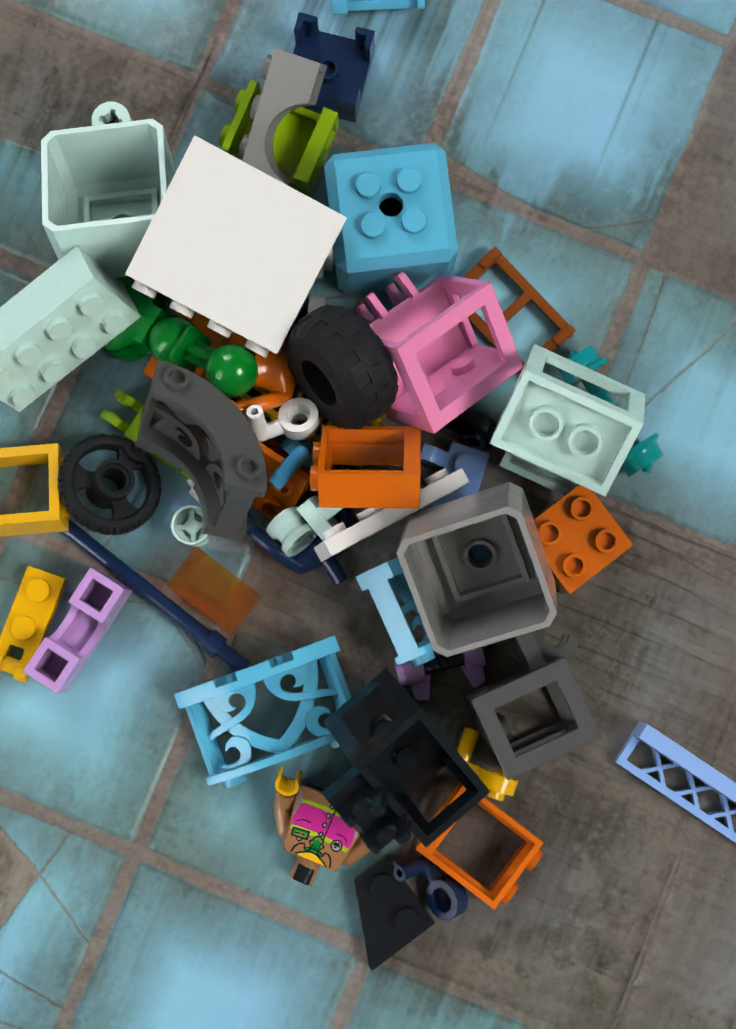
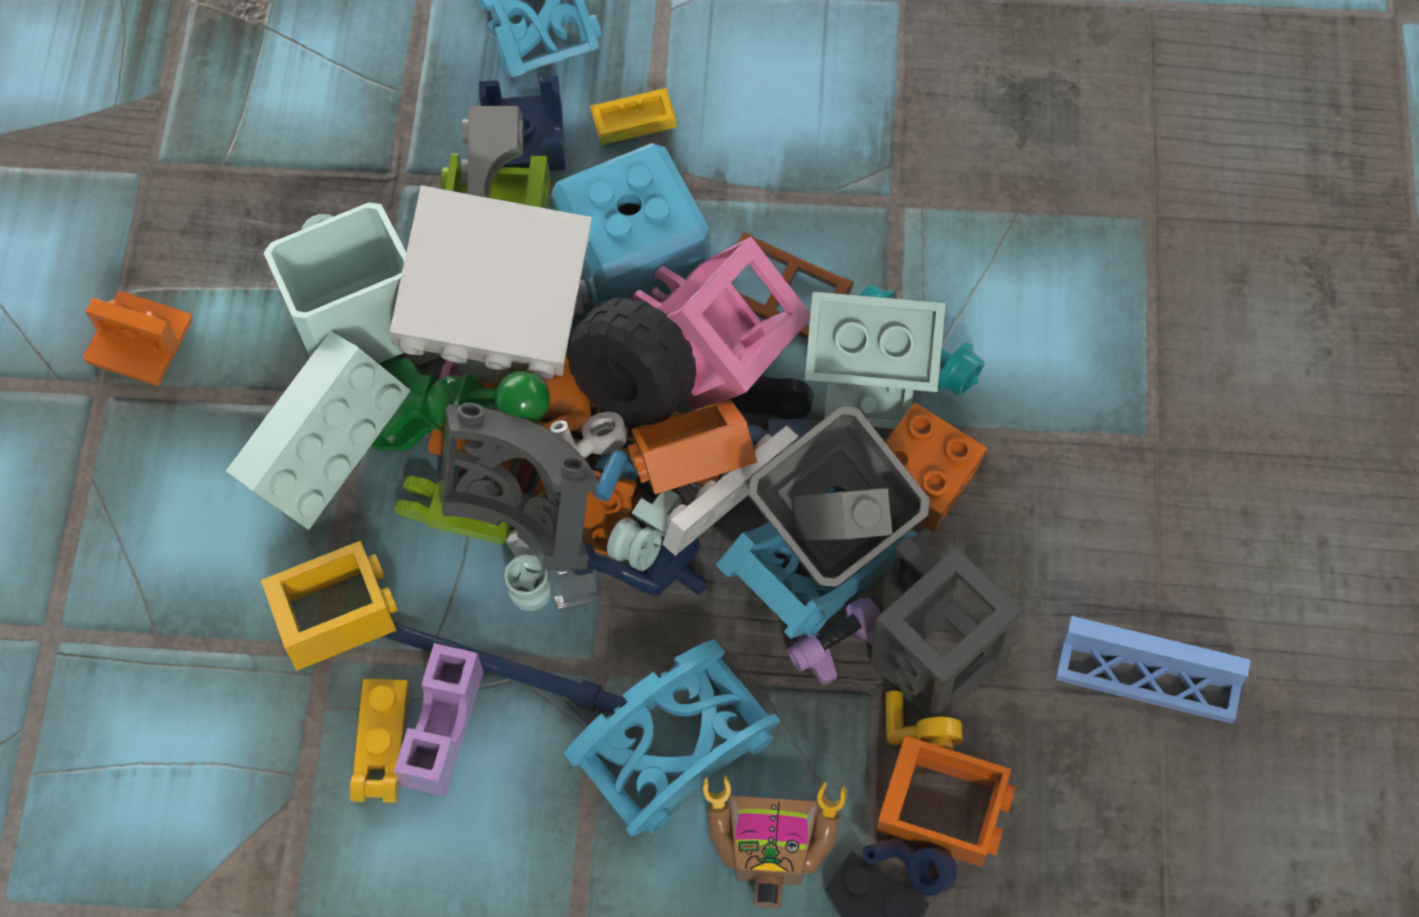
camera: 15 degrees left, 20 degrees down
(74, 477) = (426, 567): black wheel -> none
(214, 590) = (572, 638): clear orange panel -> none
(392, 756) = (822, 729): black piece -> none
(433, 91) = (633, 116): none -> yellow plate
(480, 588) = (842, 515): none -> light grey slope

